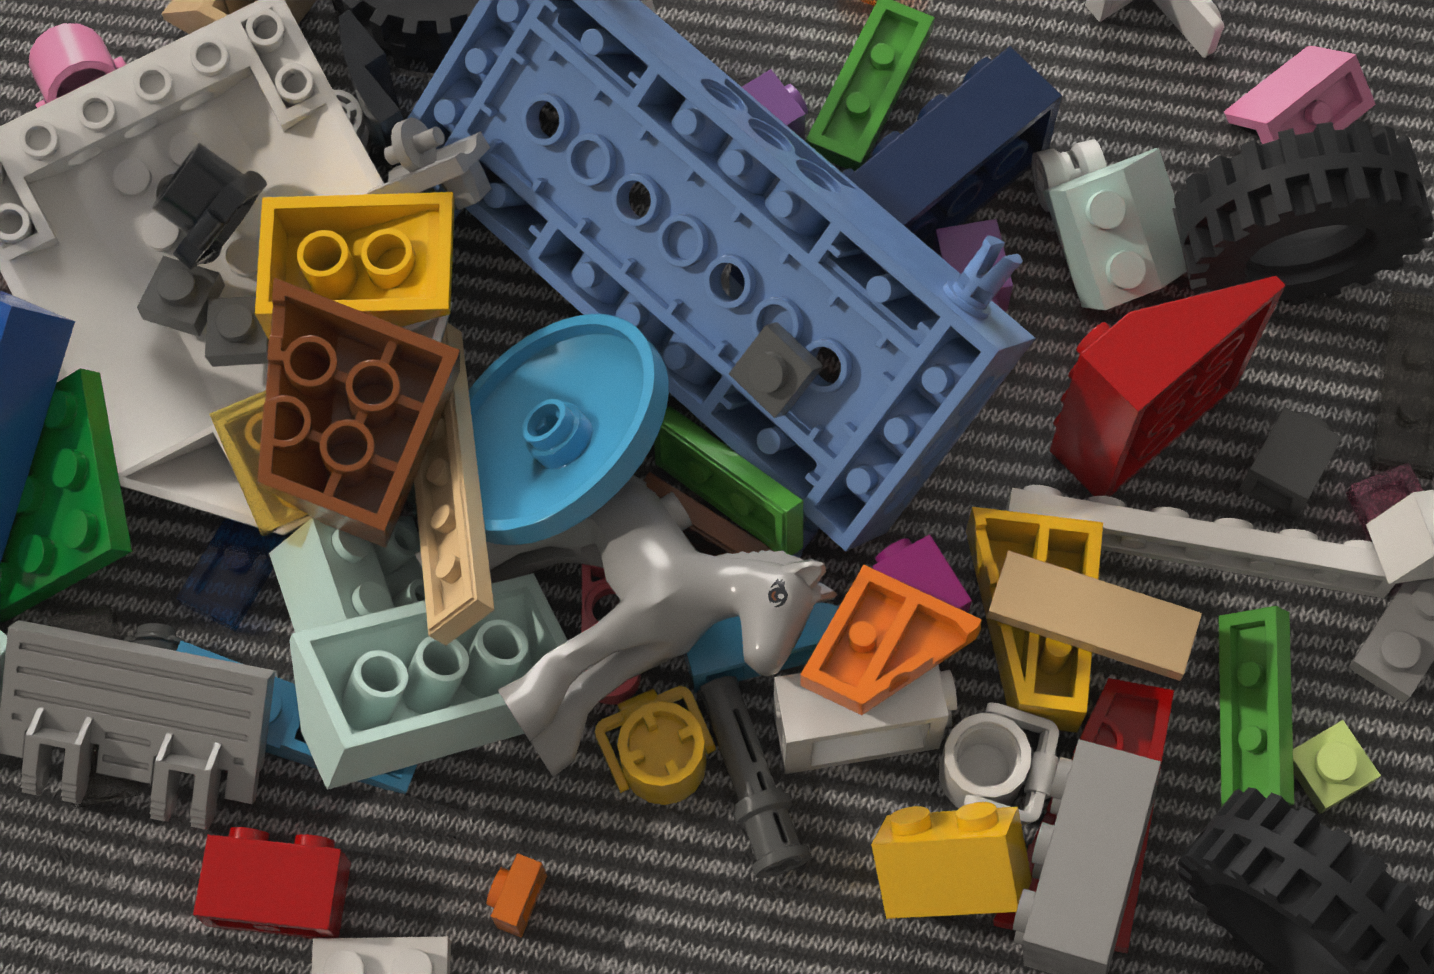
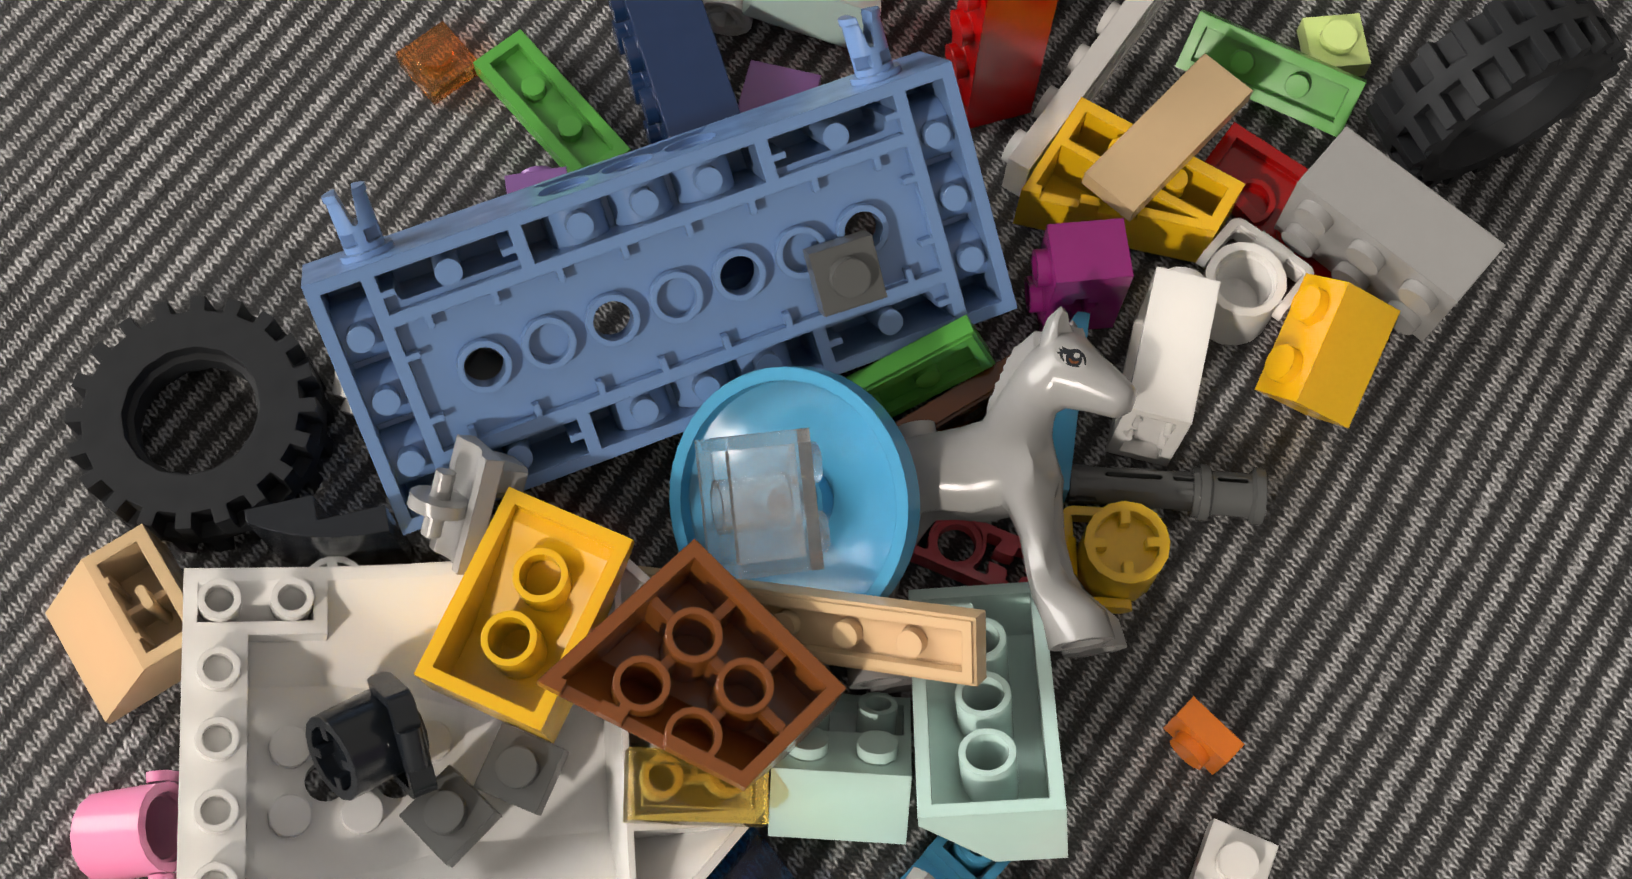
camera: 70 degrees left, 0 degrees up
(521, 393) = (762, 502): none -> clear slope
(883, 641) = (1140, 299): orange wing -> none

